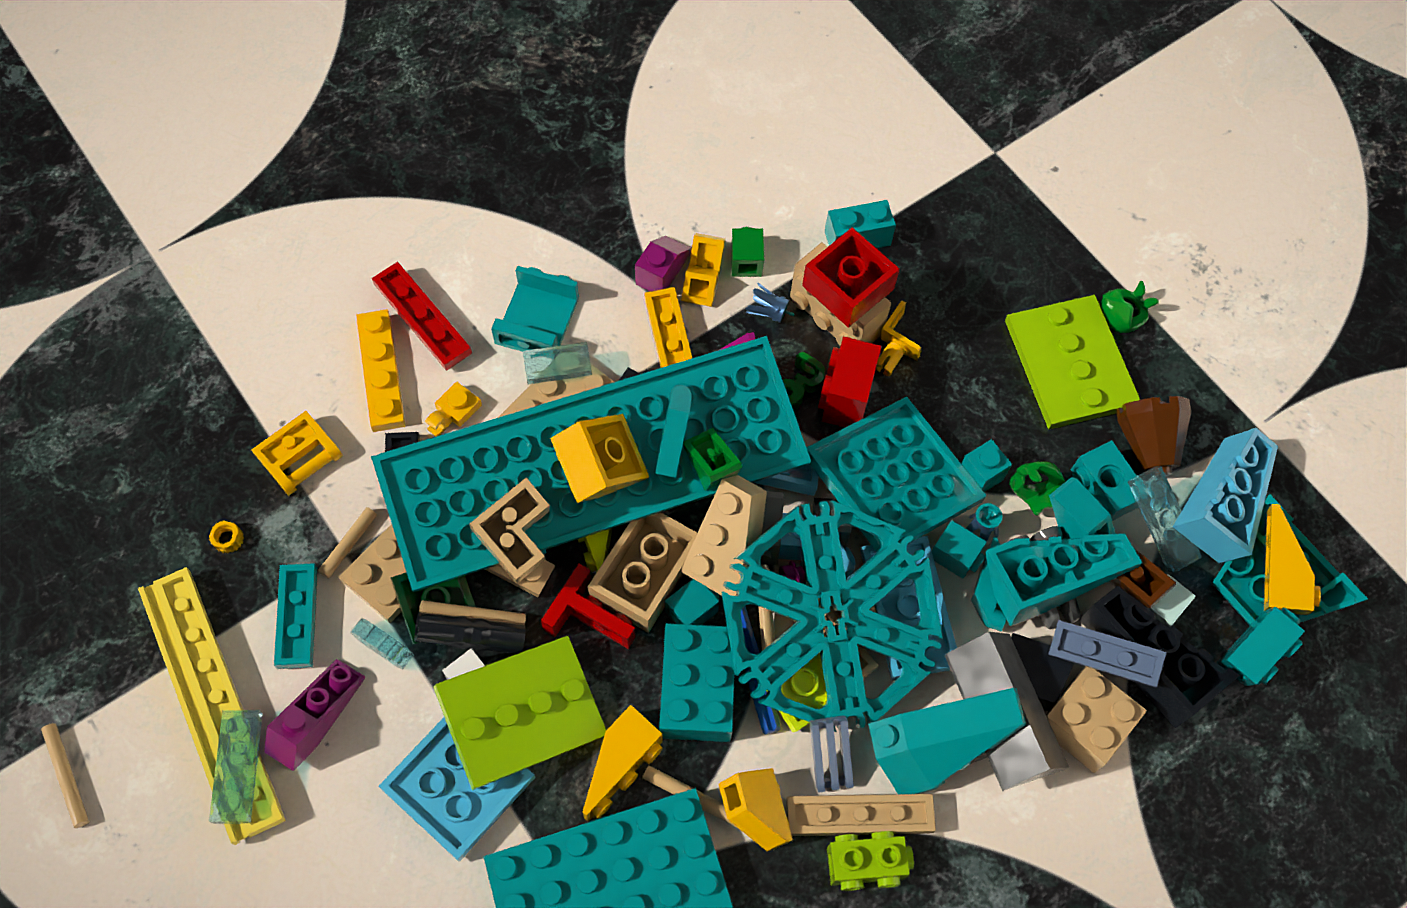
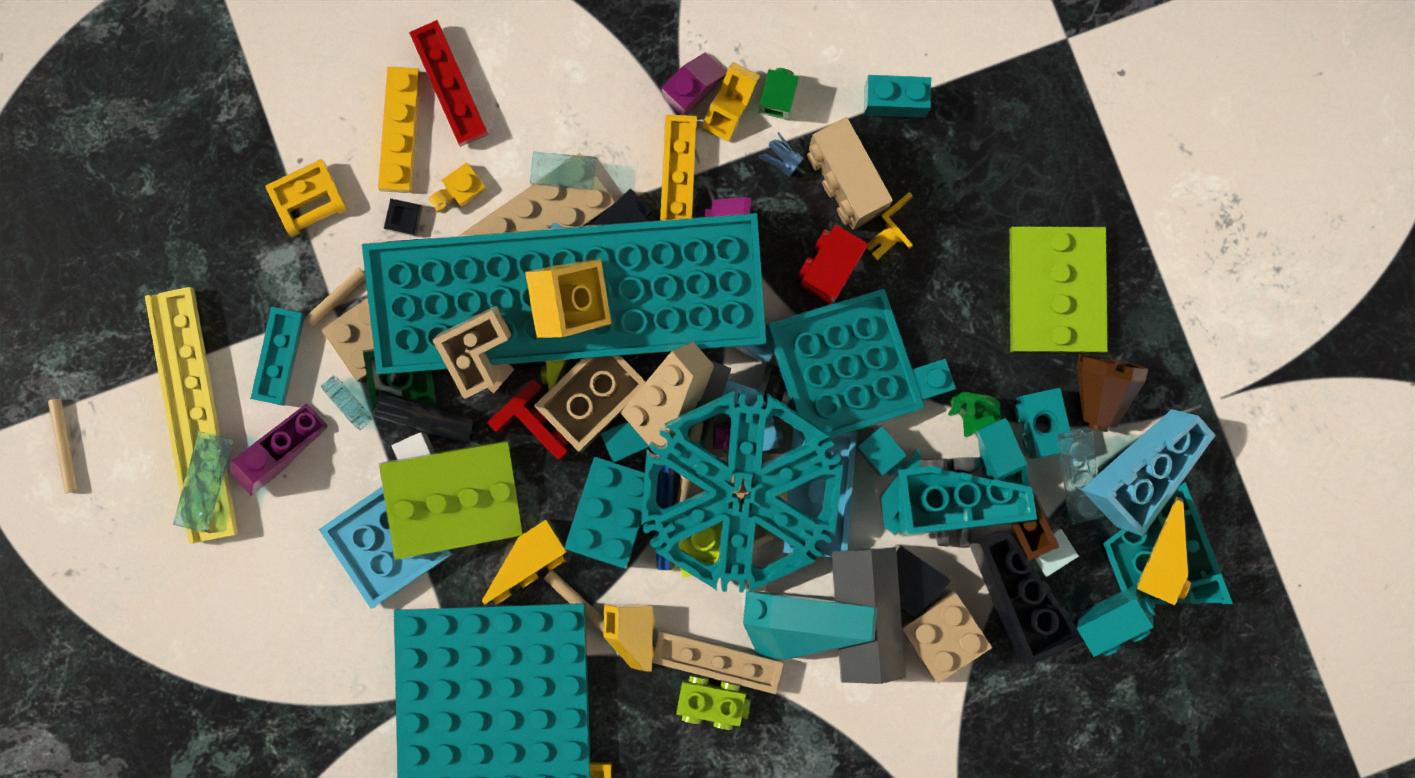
camera: 20 degrees right, 20 degrees up
(233, 544) = (239, 266): yellow axle -> none
(472, 612) = (430, 398): tan bar -> none
(537, 311) = (559, 108): teal panel -> none
(674, 431) = (643, 288): teal piece -> none
(711, 458) = (670, 323): green slope -> none
(797, 387) = (776, 257): green leg -> none
(834, 780) = (705, 625): sand blue tile -> none
(850, 277) = (857, 170): red brick -> none
(987, 520) = (915, 432): teal piece -> none
(1107, 653) = (973, 592): sand blue plate -> none
(1119, 312) = (1121, 257): green piece -> none

